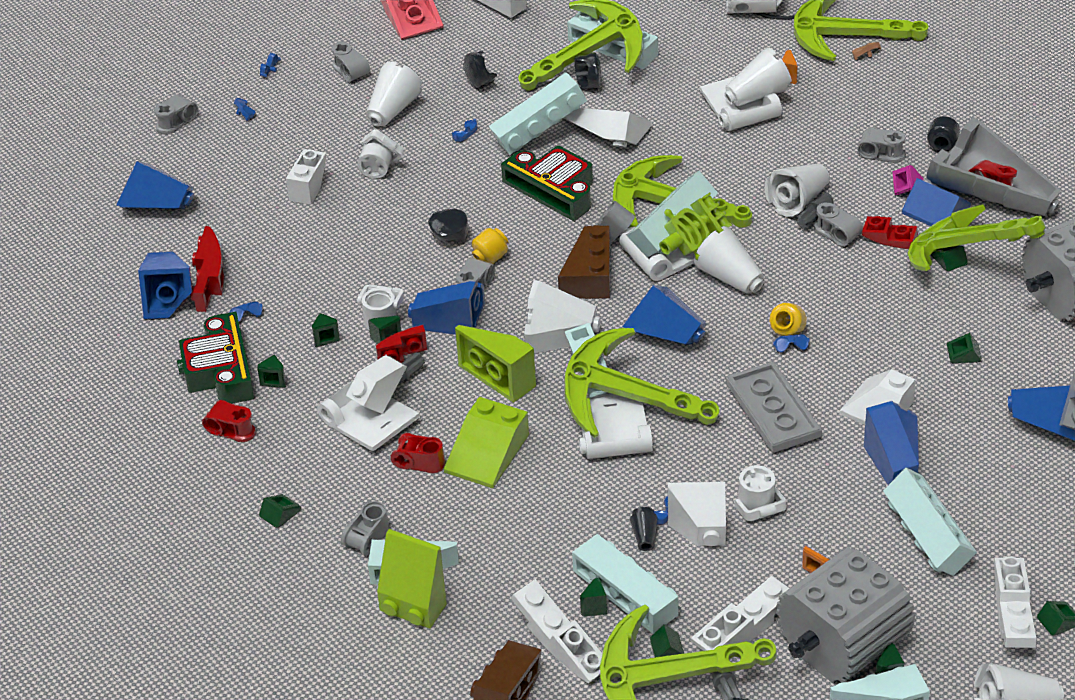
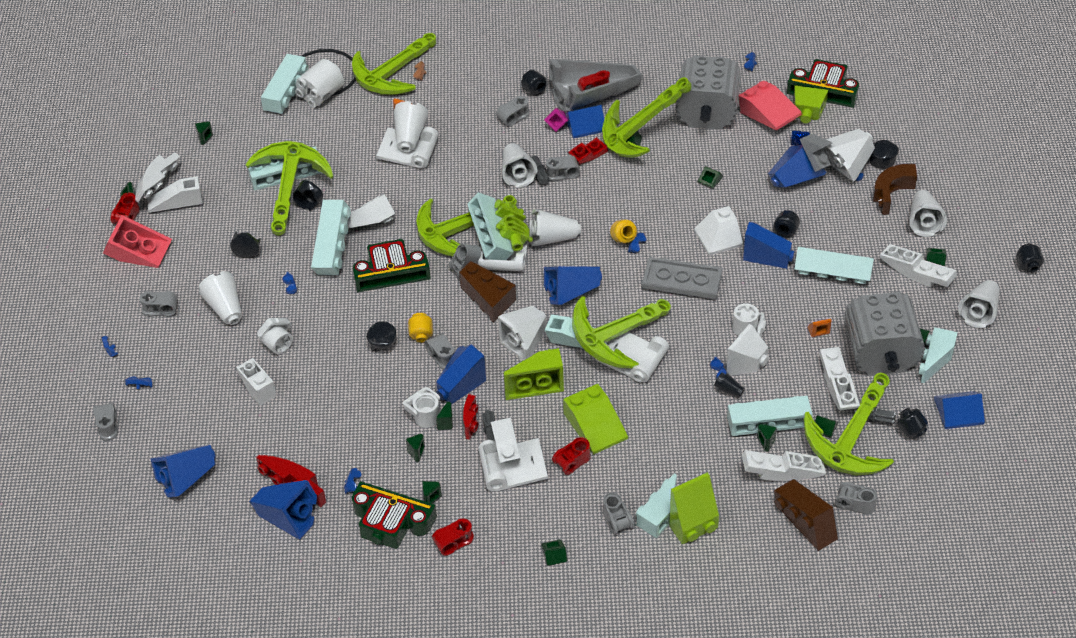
camera: 55 degrees left, 5 degrees up
(955, 449) = (786, 223): none -> black head

